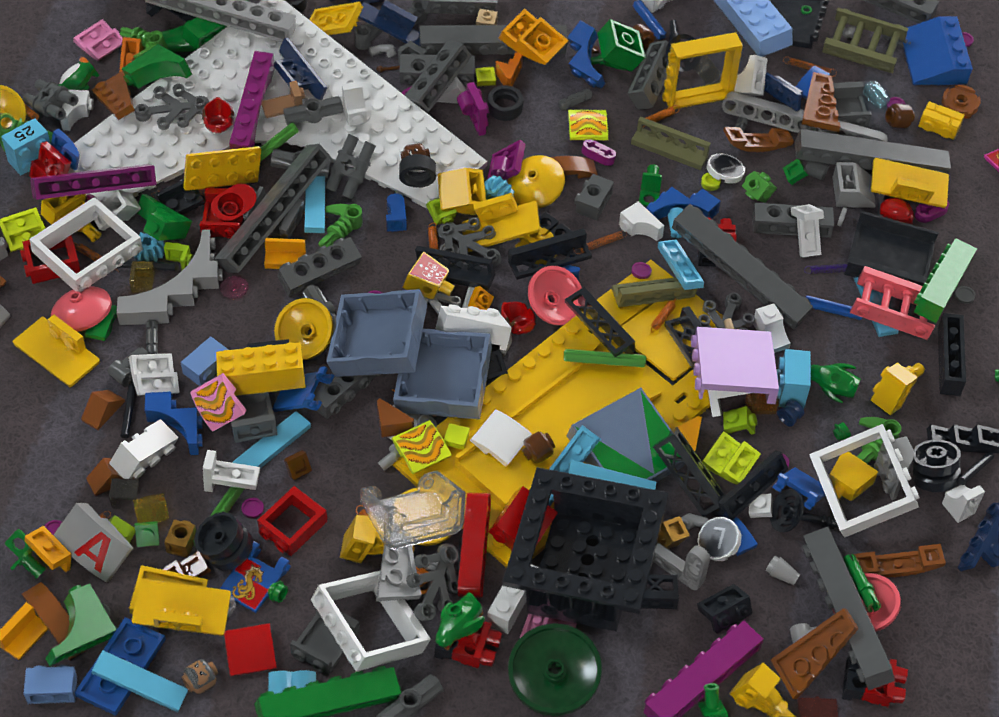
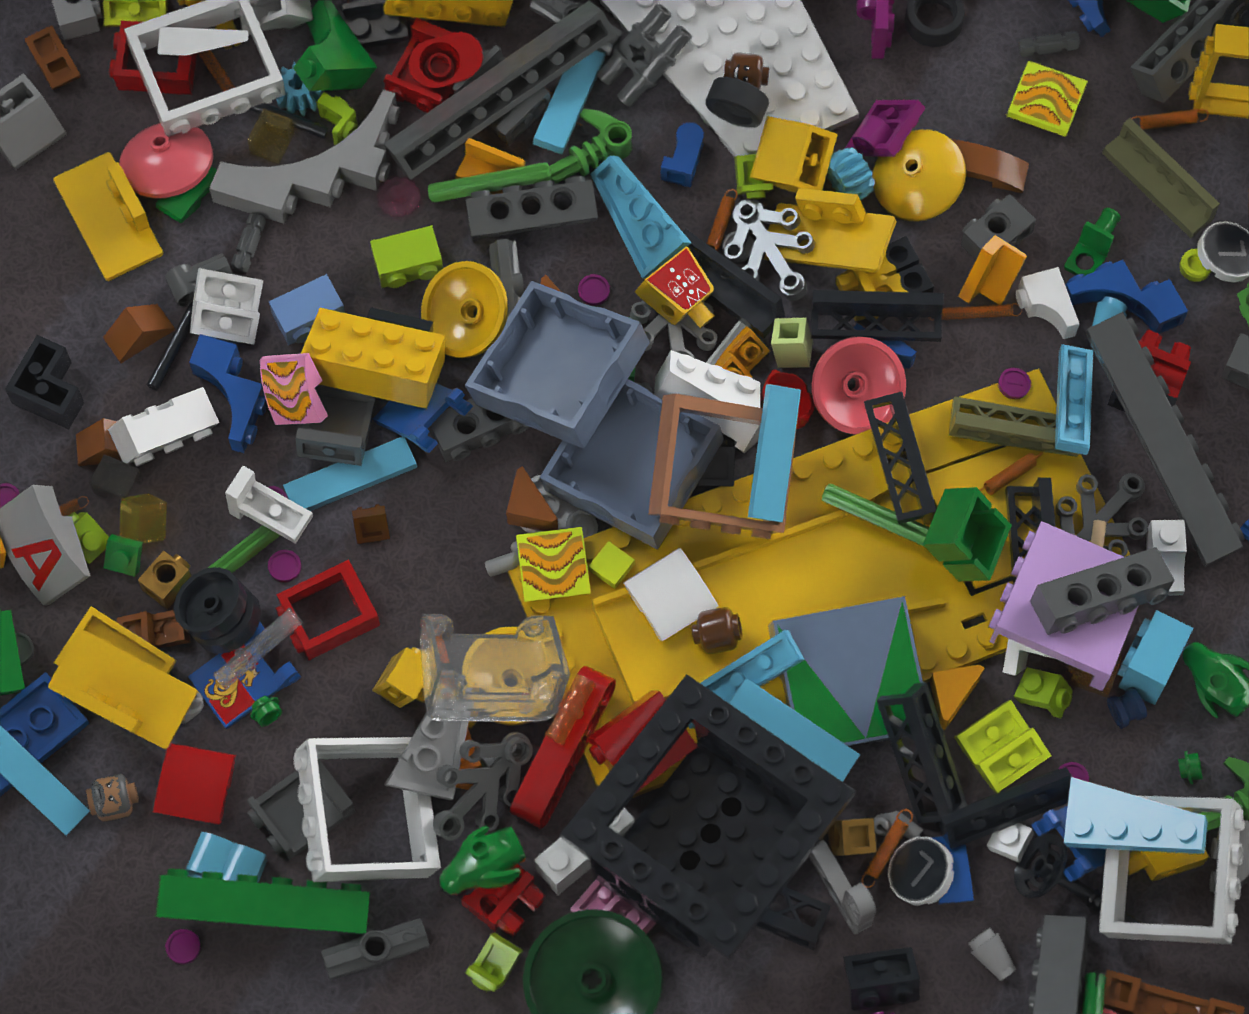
camera: 25 degrees right, 15 degrees up
(54, 456) = (40, 387): none -> black brick
(77, 232) = (195, 40): none -> white sticker
(254, 562) = (246, 658): none -> clear pin
(255, 313) = (406, 257): none -> lime brick
(274, 266) = (490, 181): none -> bright green axle
(385, 251) = (641, 221): none -> medium azure wing
(472, 517) = (570, 709): none -> clear orange pin
(488, 683) = (494, 963): none -> lime bracket
(506, 286) = (791, 342): none -> yellowish green brick
(527, 323) = (661, 482): none -> nougat window
(530, 335) = (774, 453): none -> medium azure tile
(598, 152) = (1042, 153): magenta beam -> none
(604, 214) = (993, 271): none -> light orange panel
(658, 349) = (967, 534): none -> green piece
(693, 531) = (887, 847): none -> orange piece
(751, 347) = (1144, 569): none -> dark grey brick
(827, 462) = (1123, 821): none -> medium azure wing

